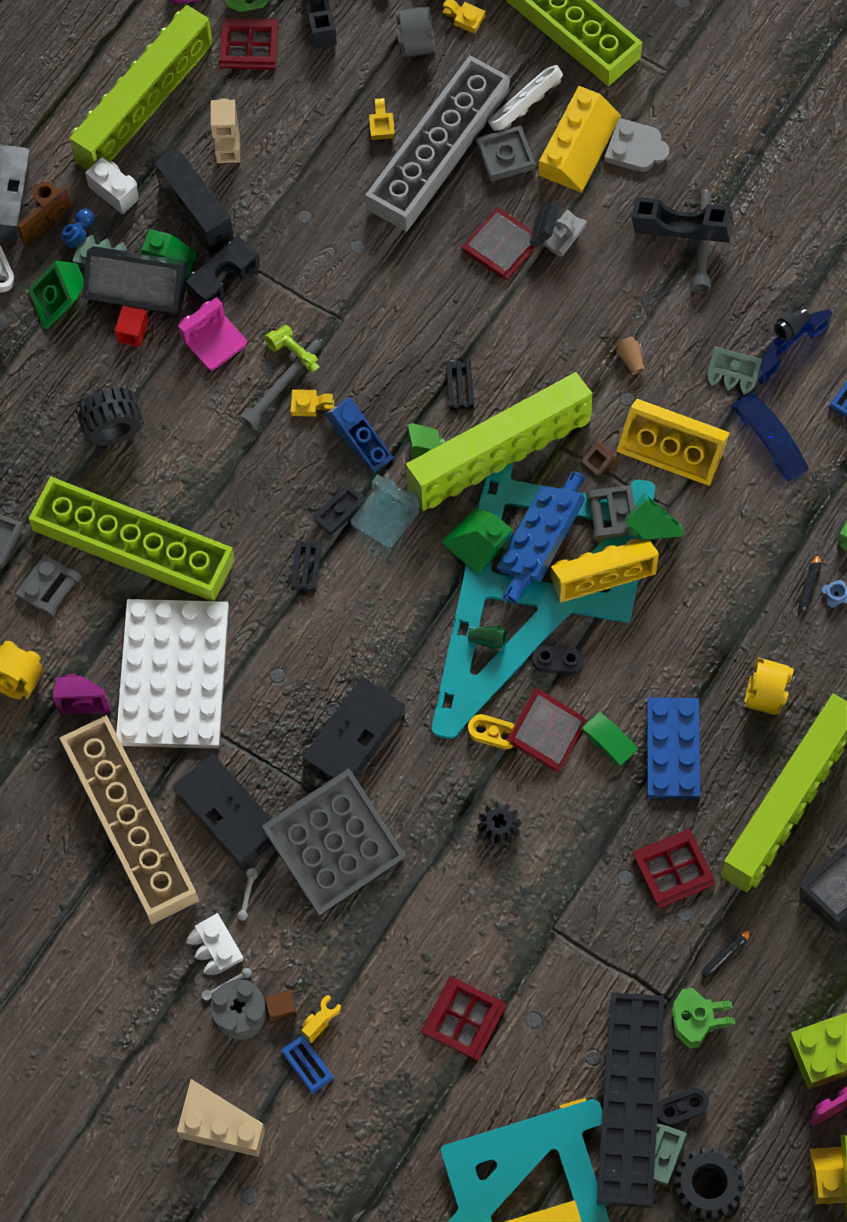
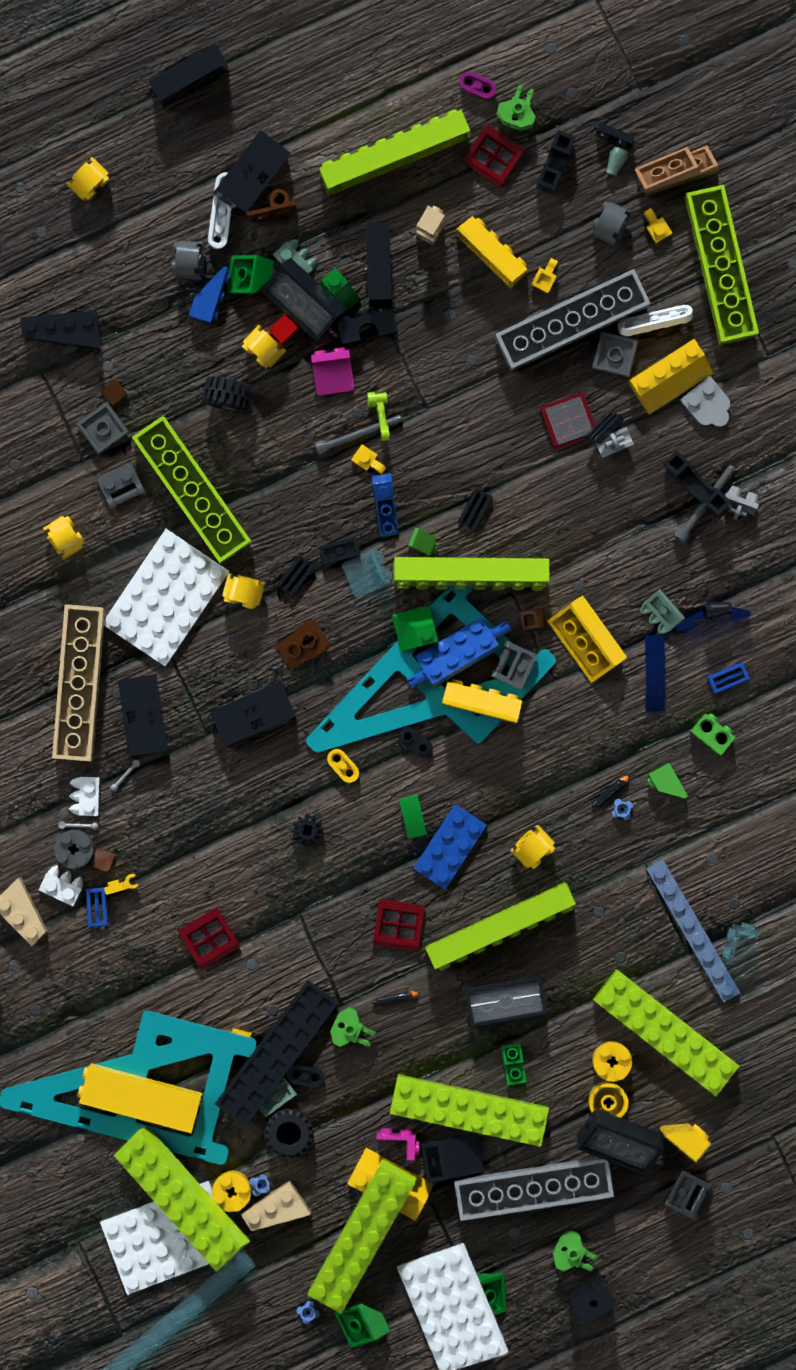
camera: 30 degrees right, 20 degrees up
(27, 342) = (206, 301): none -> blue slope
(75, 234) = (286, 234): blue plate -> none
(79, 696) = (96, 577): magenta slope -> none
(112, 185) = (332, 213): white brick -> none
(120, 350) = (263, 346): none -> yellow brick
(250, 1067) = (61, 887): none -> white plate
(257, 608) = (243, 590): none -> yellow brick
(307, 129) = (491, 251): none -> yellow slope
(333, 841) = (196, 779): dark grey piece -> none
(361, 633) = (305, 643): none -> reddish brown piece
(490, 636) = (379, 701): dark green cone -> none
(546, 730) = (376, 786): clear piece -> none
(630, 353) = (600, 559): medium nougat cone -> none
(652, 521) = (534, 691): green slope -> none
(746, 215) = (740, 505): none -> light grey hips

